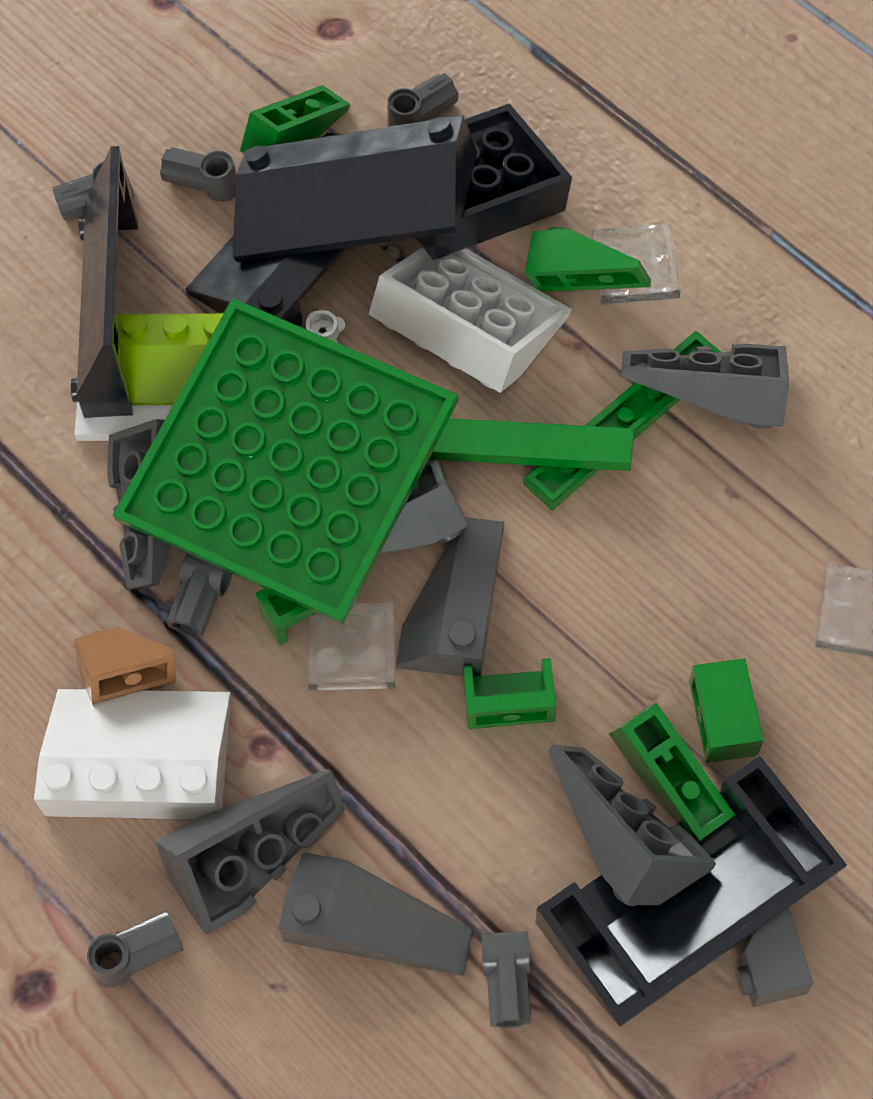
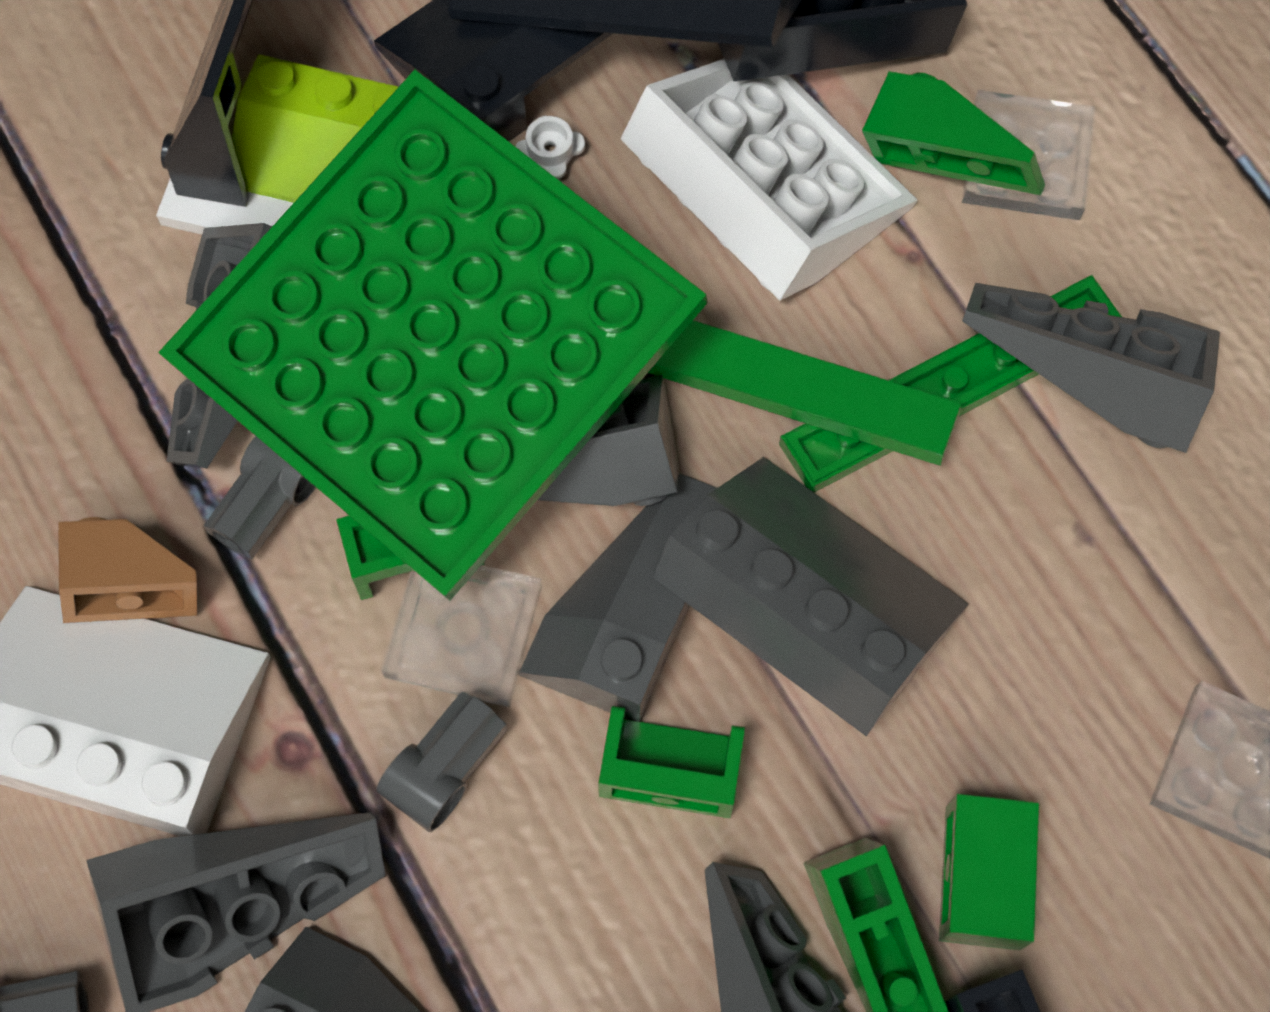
camera: 10 degrees right, 5 degrees up
(359, 738) = (432, 776): none -> dark grey piece
(567, 567) = (808, 591): none -> dark grey slope

